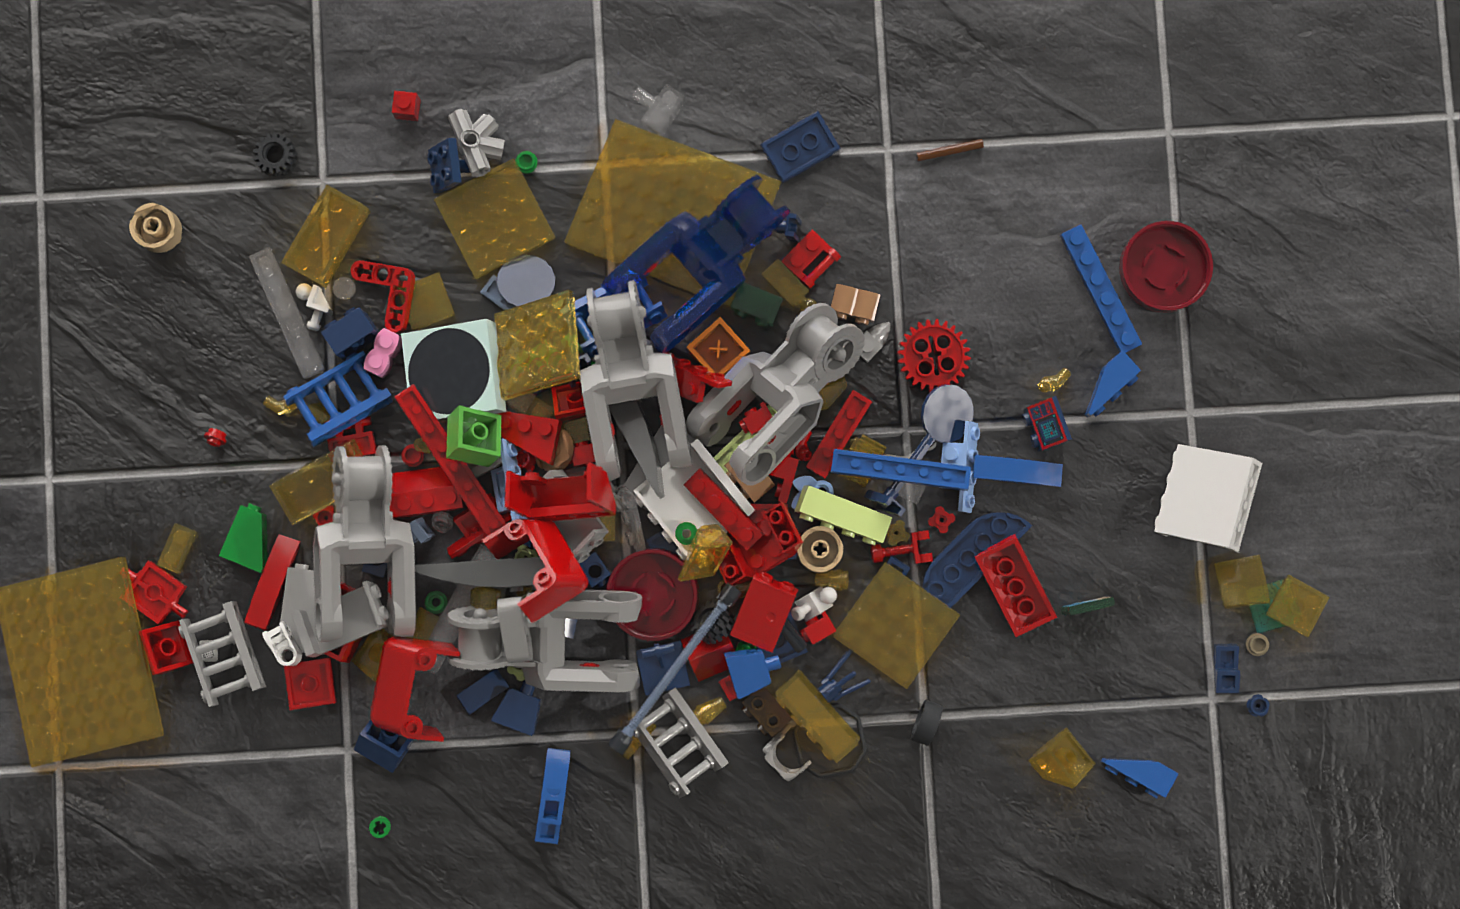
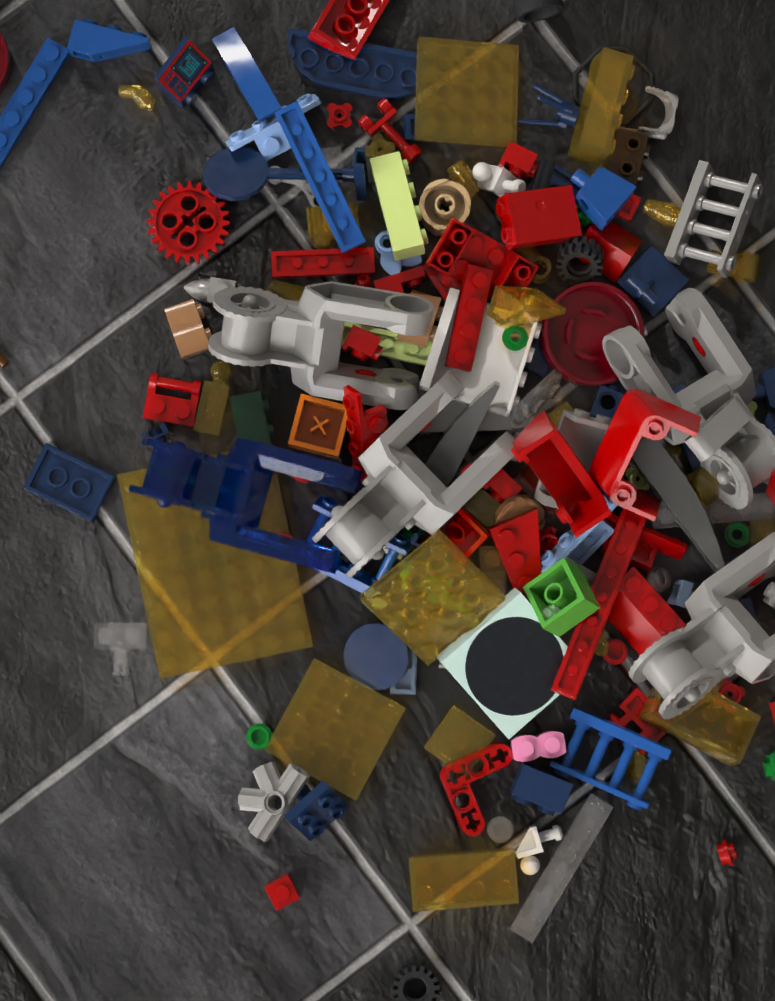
camera: 125 degrees left, 0 degrees up
(278, 406) = (656, 813): clear yellow arm -> none
(622, 739) = (747, 266): sand blue hose -> none

